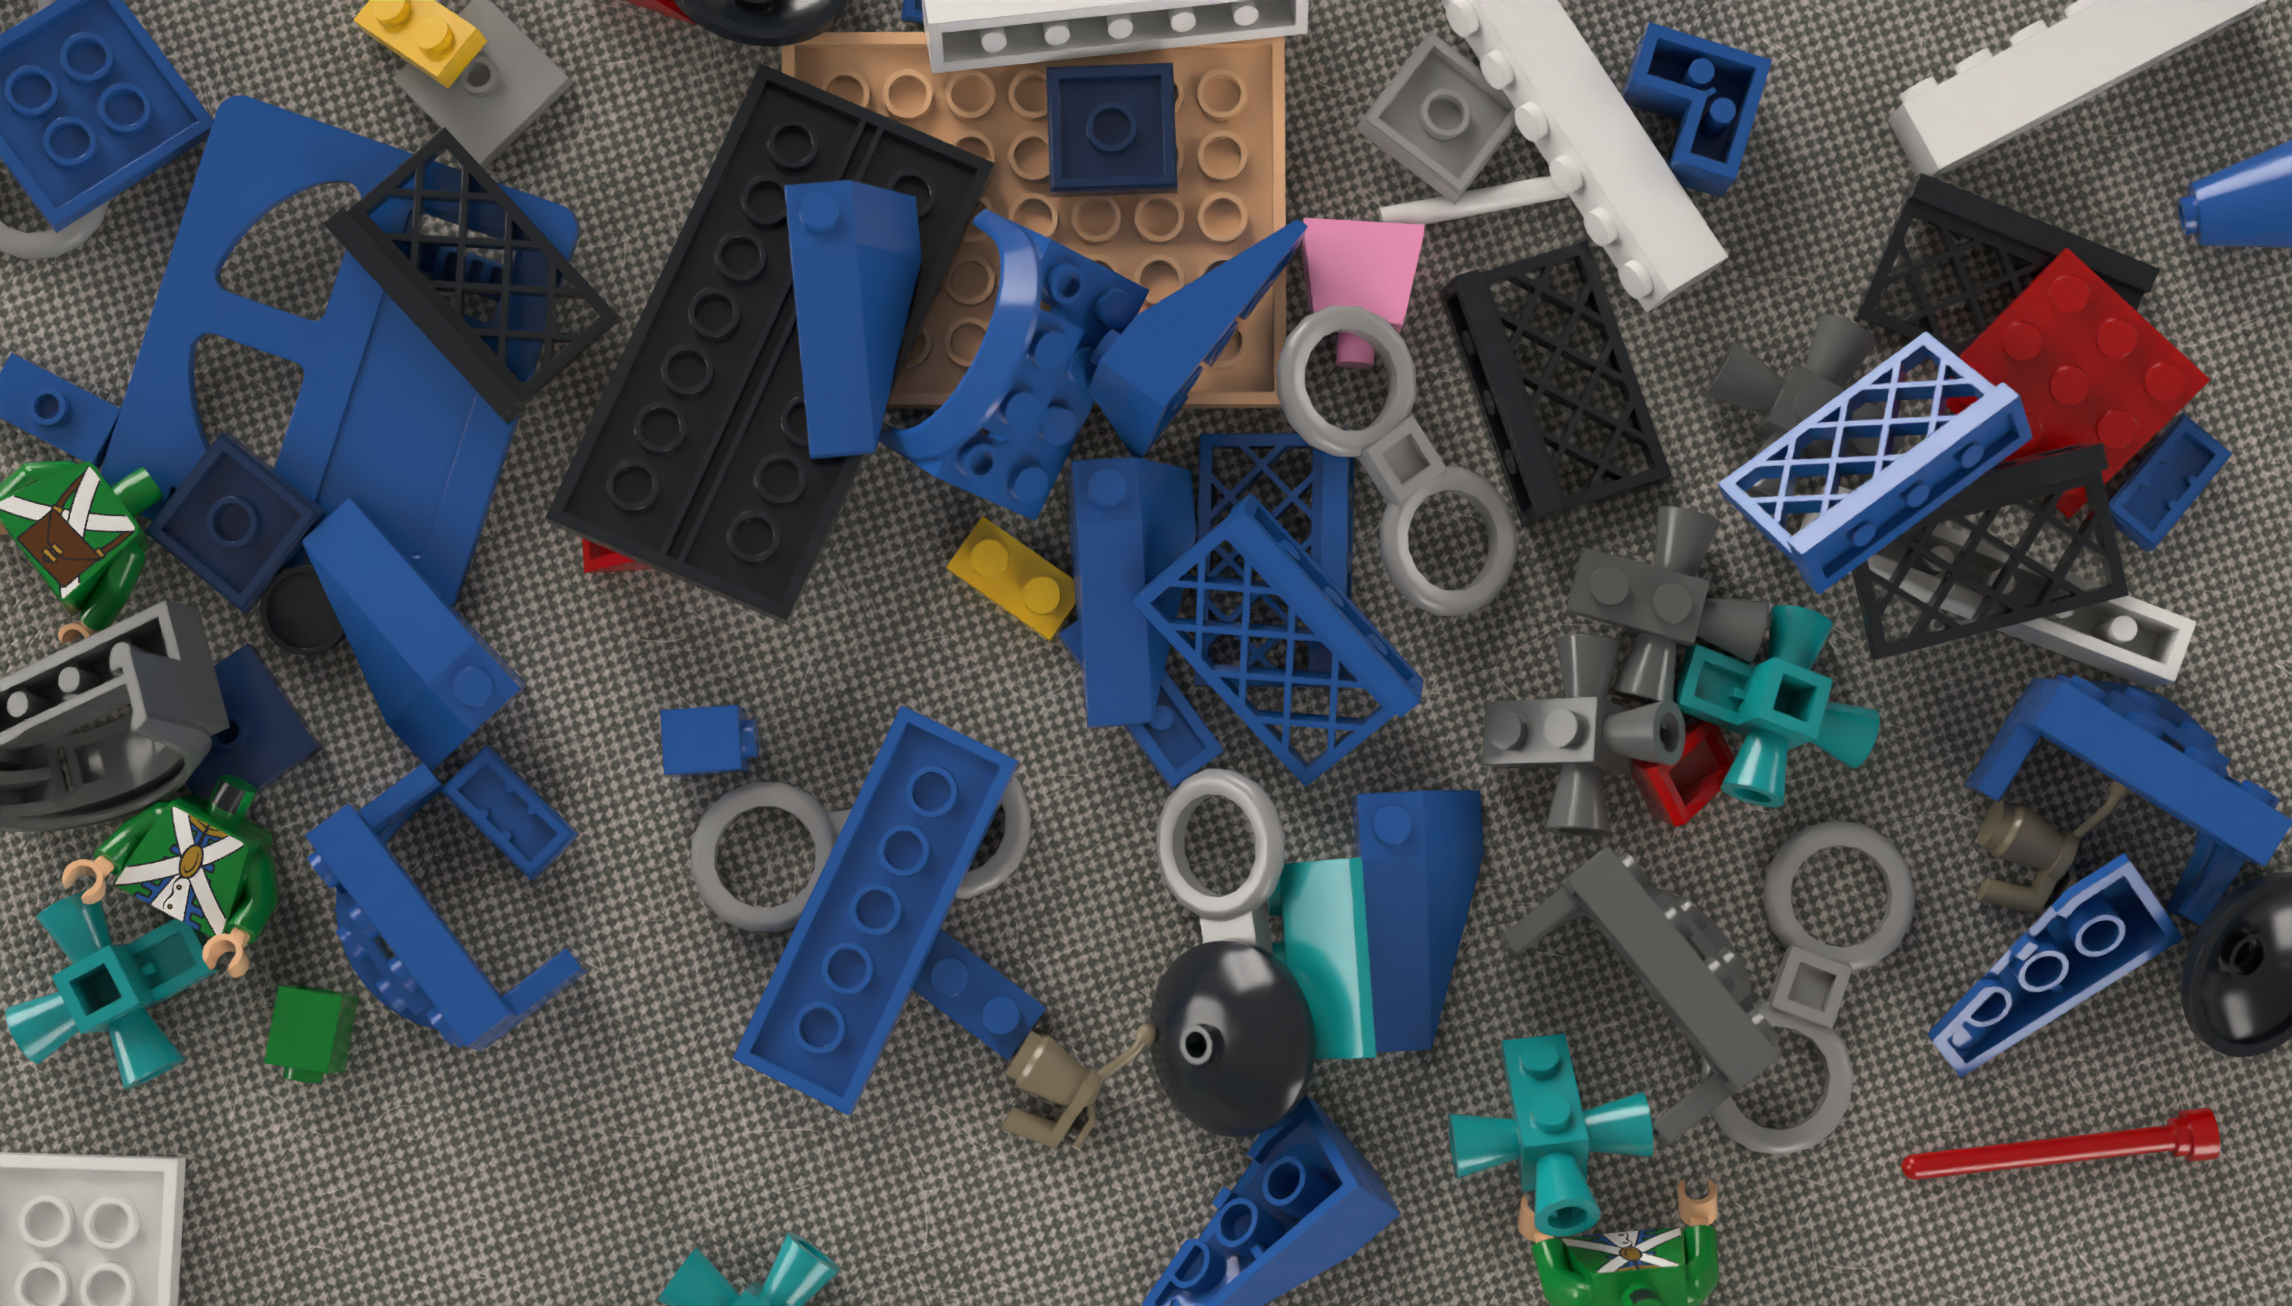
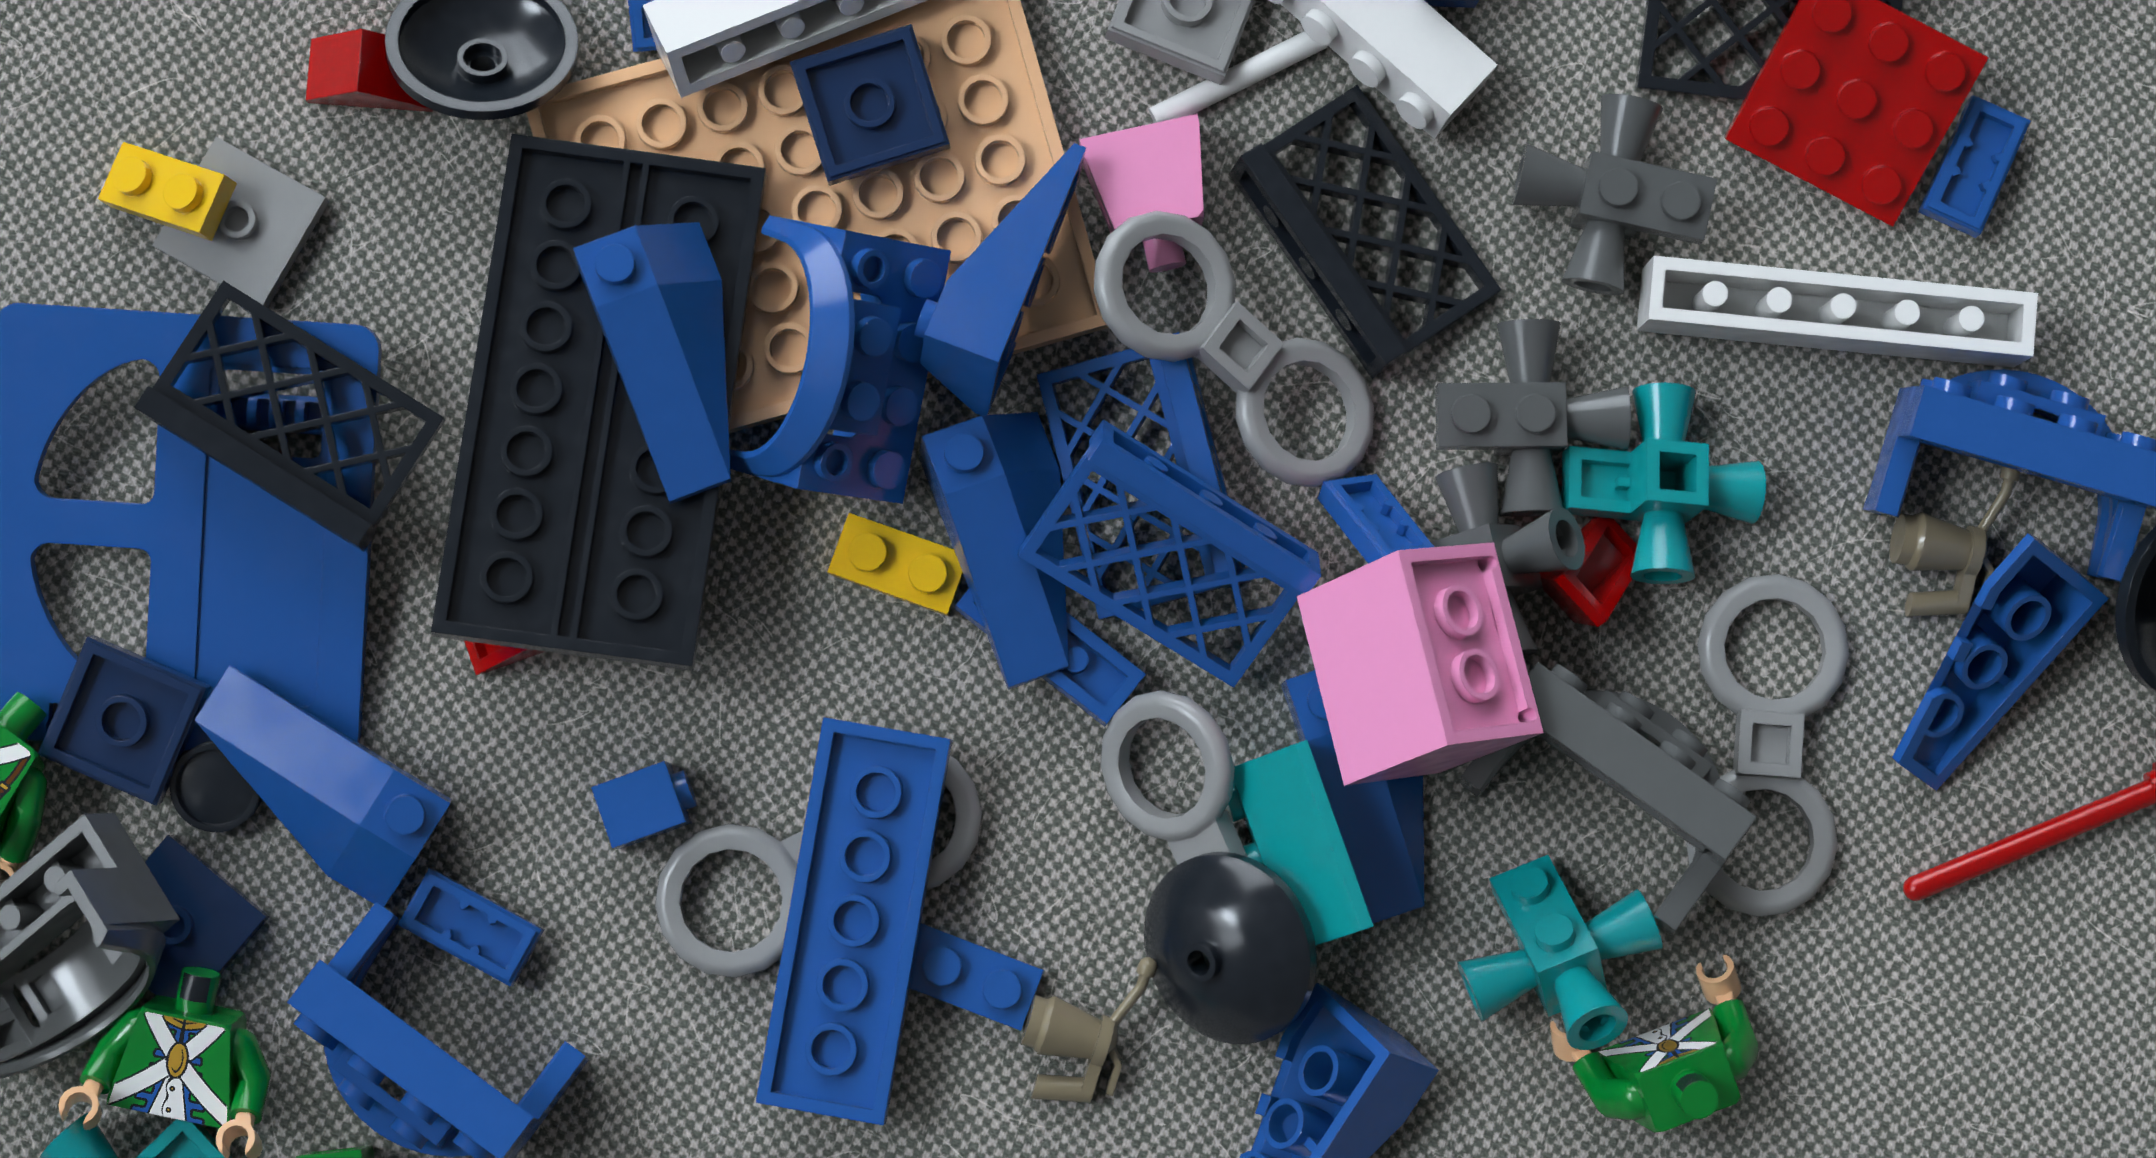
camera: 20 degrees left, 0 degrees up
(1489, 670) = (1371, 516): none -> blue plate
(1492, 813) = (1419, 663): none -> bright pink container
(1902, 485) = (1722, 242): blue fence -> none
(2003, 485) = (1785, 233): black fence -> none

